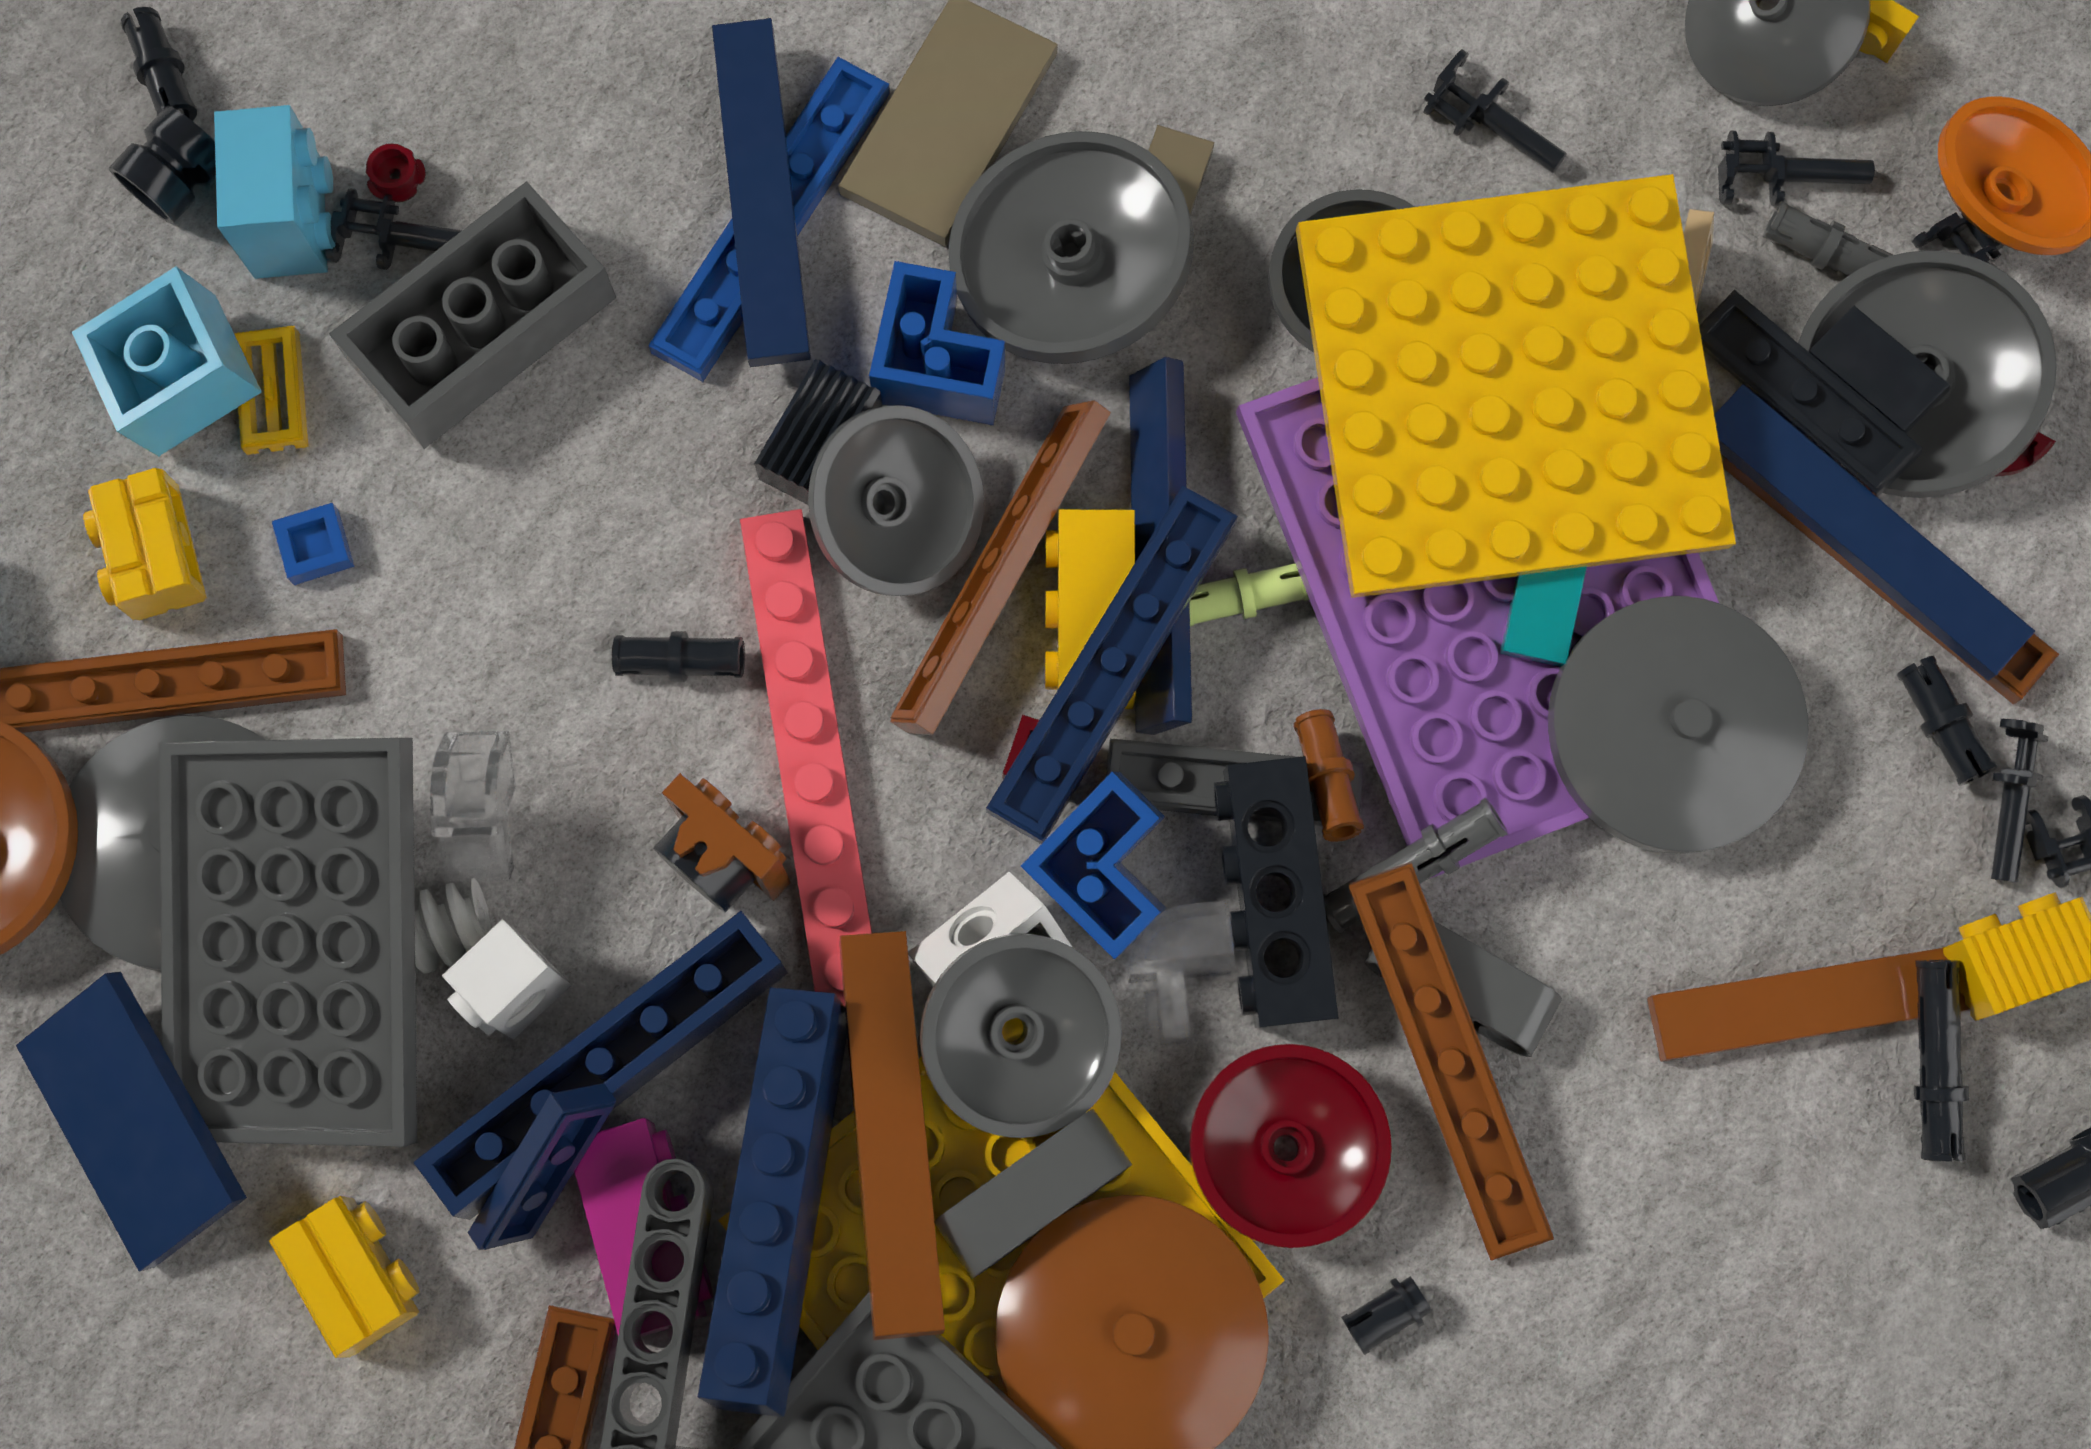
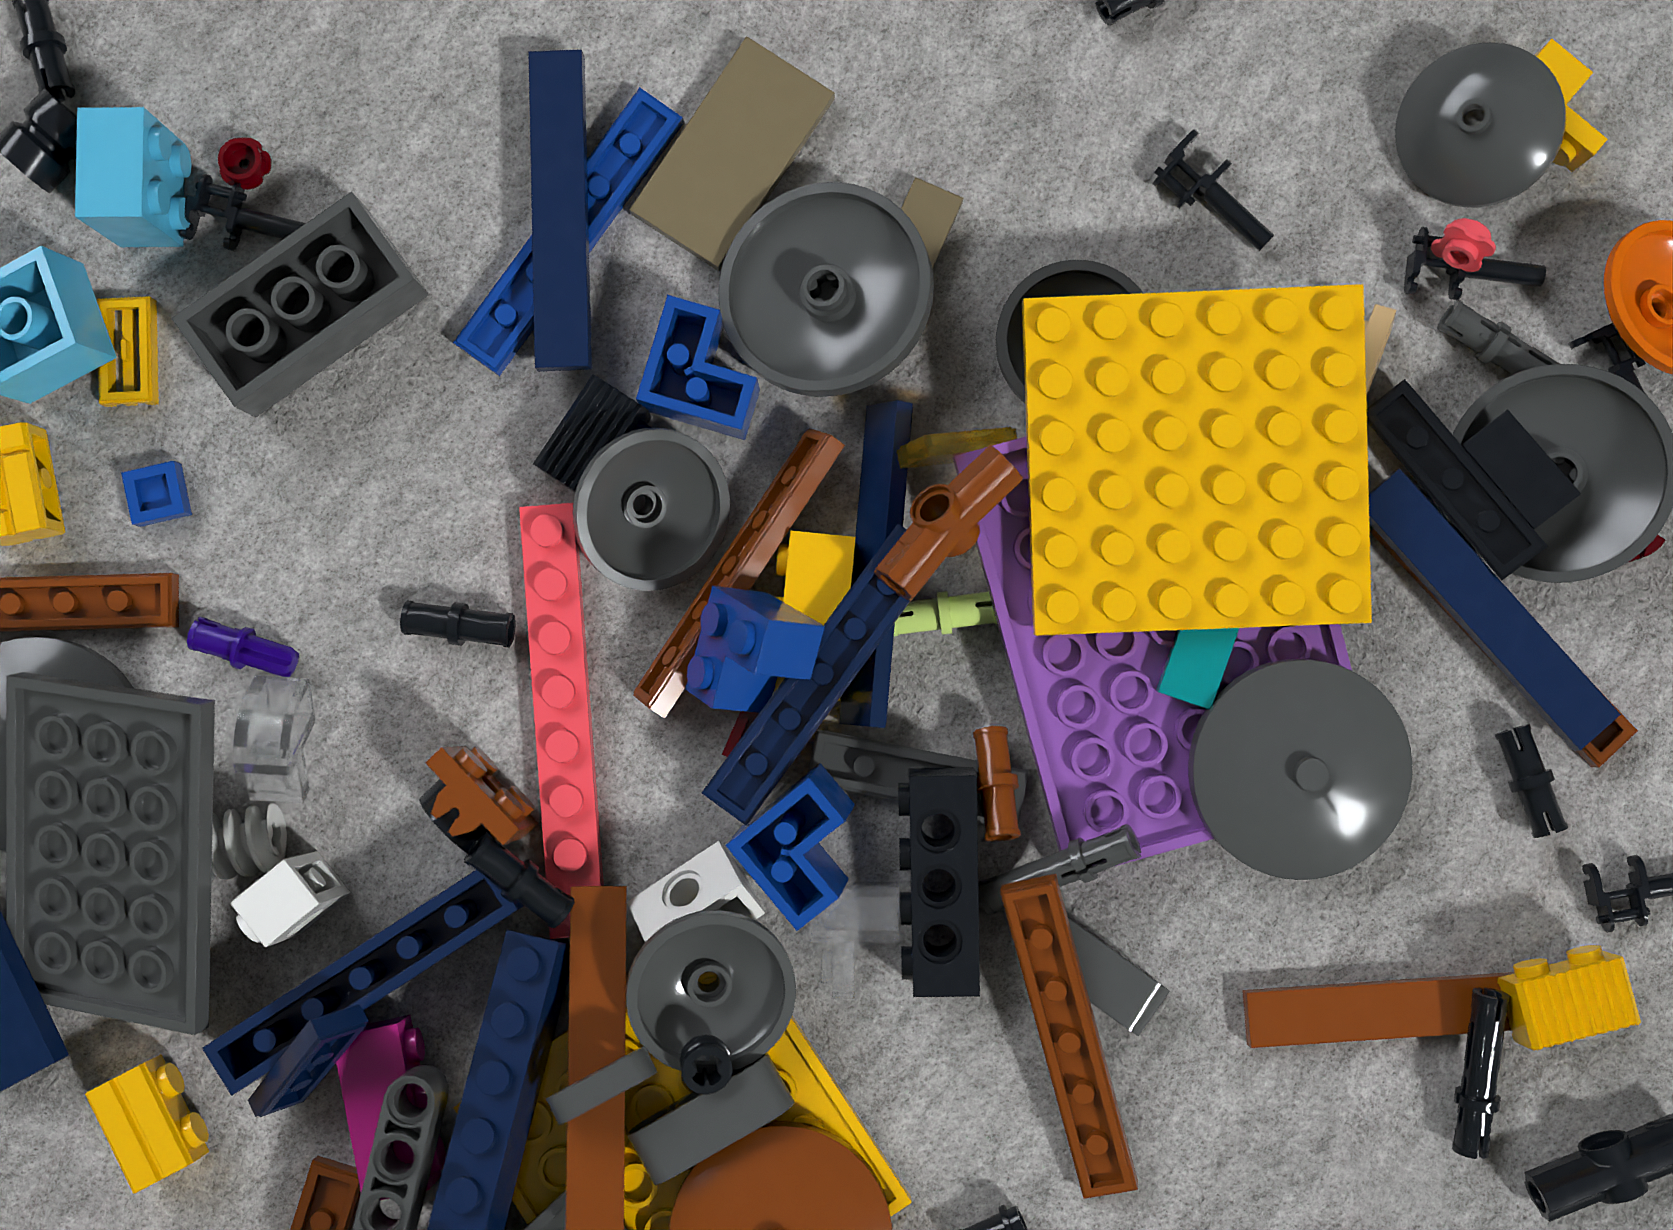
camera: 10 degrees right, 10 degrees up
(425, 706) = (241, 647): none -> dark purple axle
(782, 924) = (519, 880): none -> black pin
(902, 1149) = (601, 1085): none -> dark grey beam
(1020, 637) = (748, 644): none -> blue brick
(1043, 1114) = (704, 1082): none -> black bush
(1216, 401) = (941, 447): none -> clear yellow tile
(1239, 472) = (946, 522): none -> dark orange piece
(1338, 1138) = (936, 1134): dark red dish -> none
(1779, 139) = (1464, 244): none -> coral plate
(2015, 797) = (1582, 843): black piece -> none

